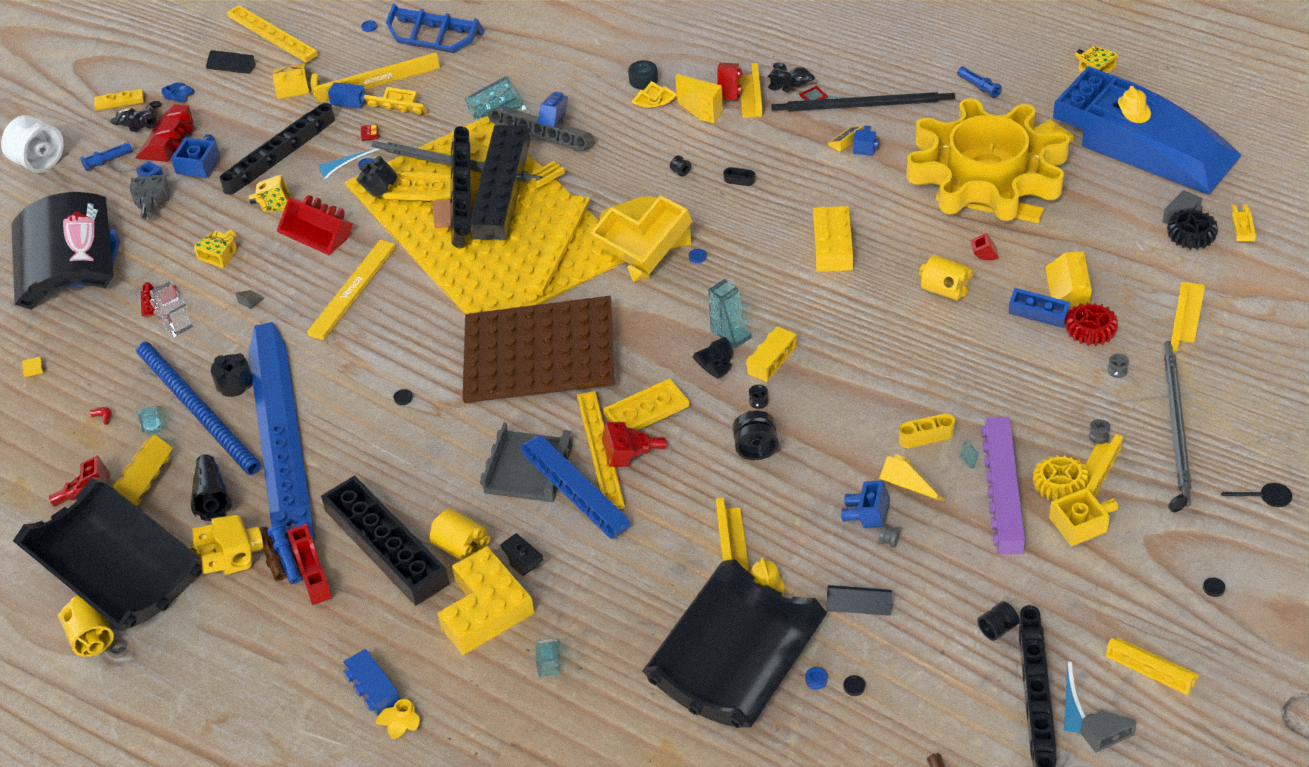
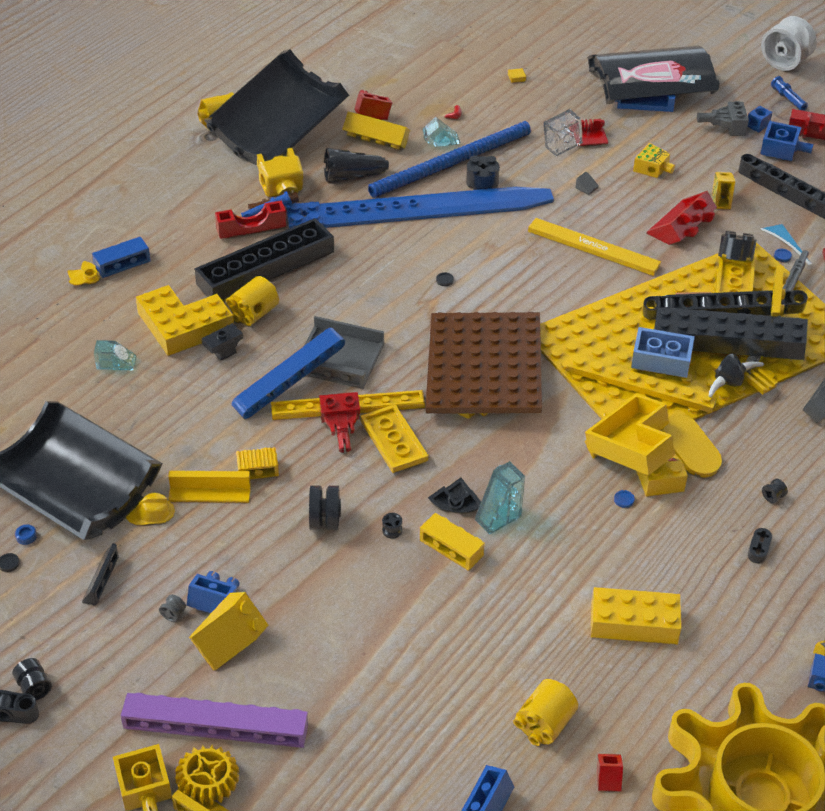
camera: 90 degrees right, 0 degrees up
(463, 140) = (778, 293): none -> yellow plate
(525, 224) = (662, 352): none -> medium blue brick
(549, 184) = (731, 372): none -> black helmet
(696, 502) = (260, 463): none -> yellow brick
(926, 430) = (309, 662): yellow beam -> none
(968, 454) = (267, 695): clear light blue slope -> none

